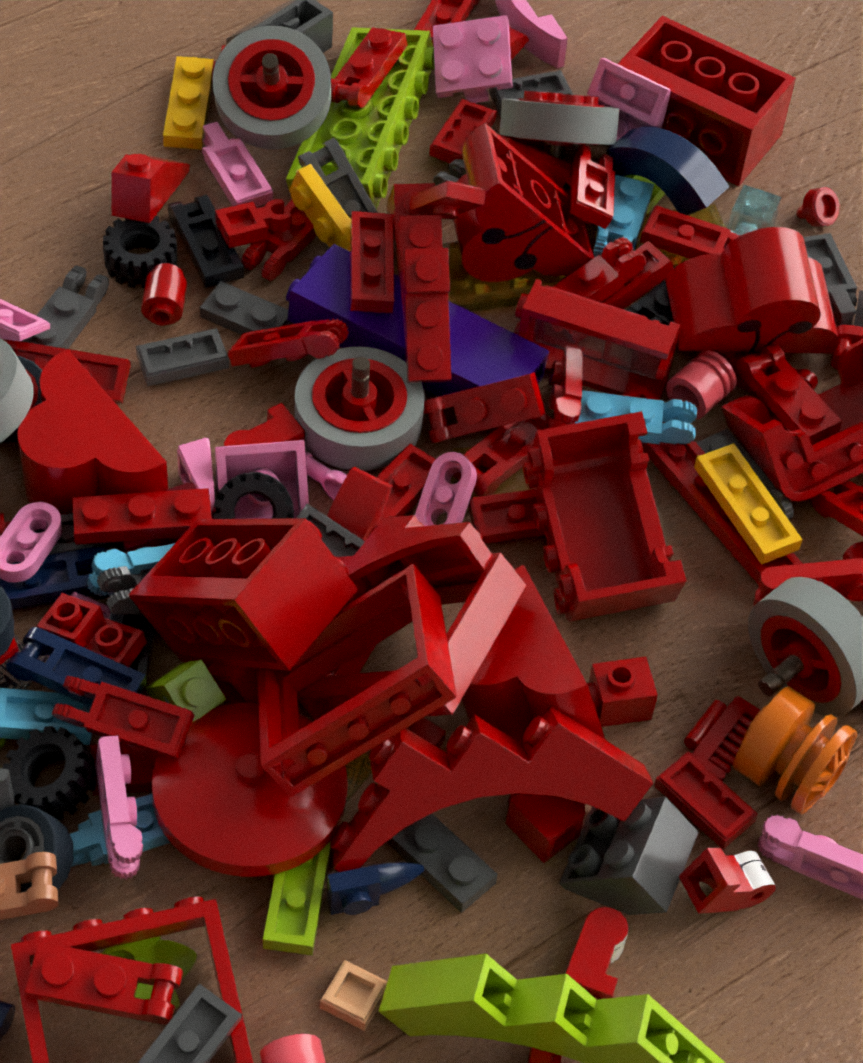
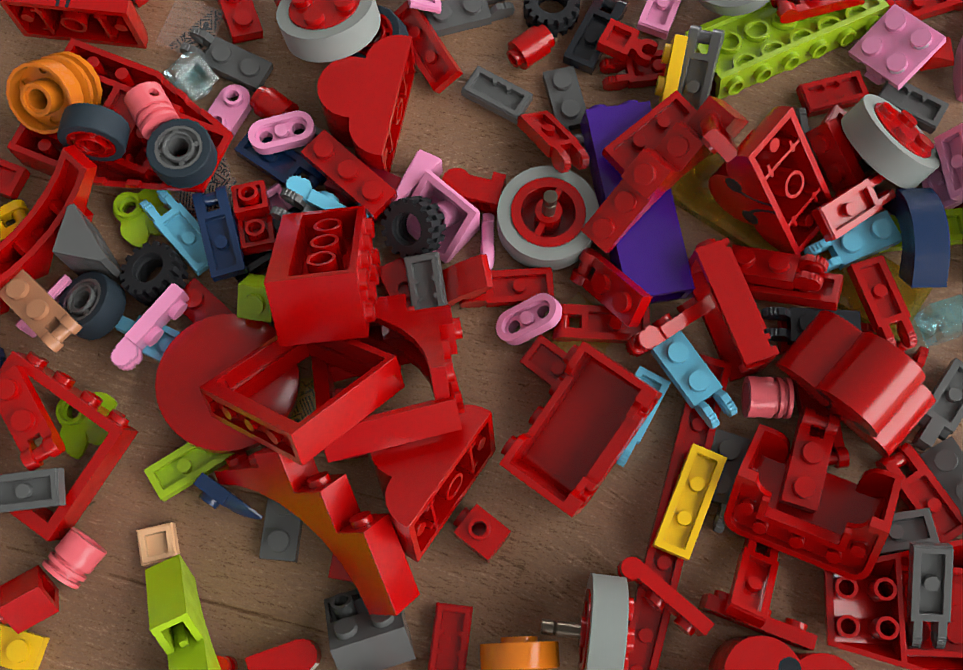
camera: 55 degrees right, 20 degrees up
(129, 715) = (201, 284): red hinge -> none
(715, 728) = (506, 608): red piece -> none

